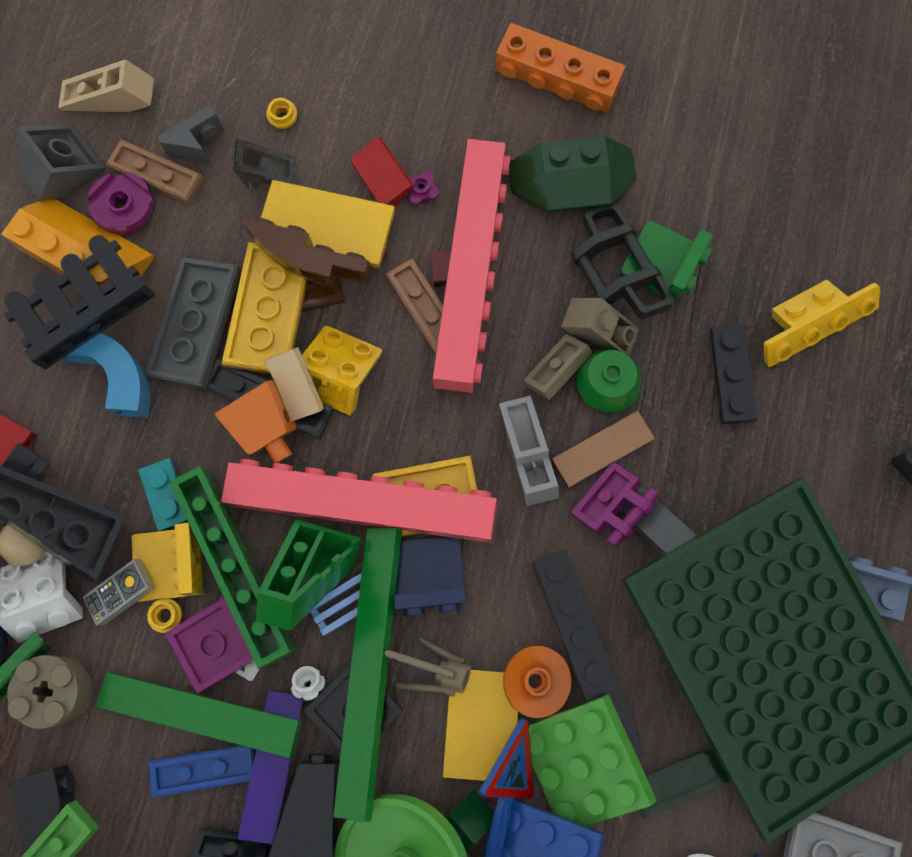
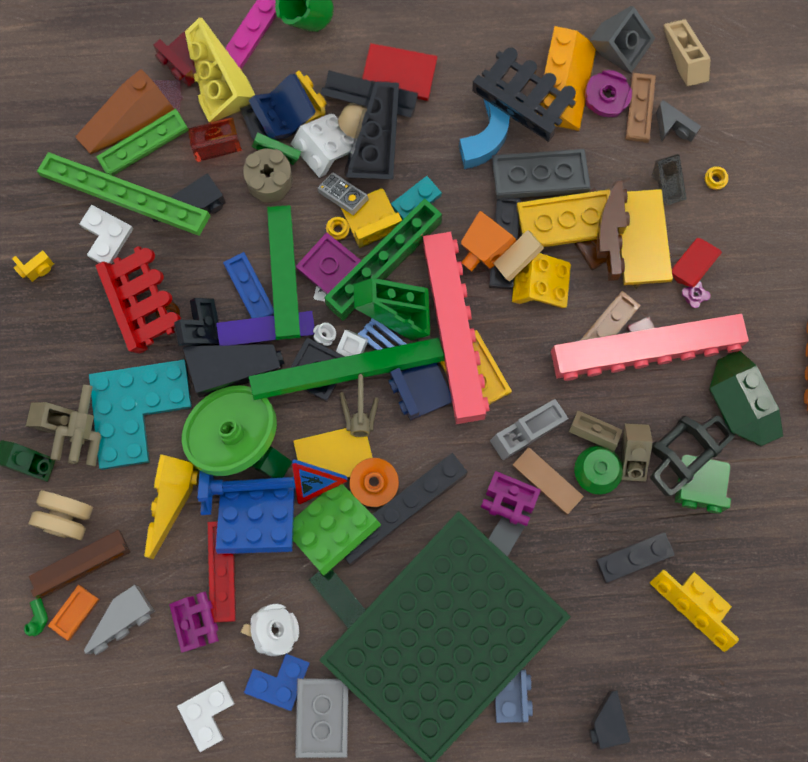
camera: 65 degrees right, 0 degrees up
(335, 649) = (351, 344): none -> white plate

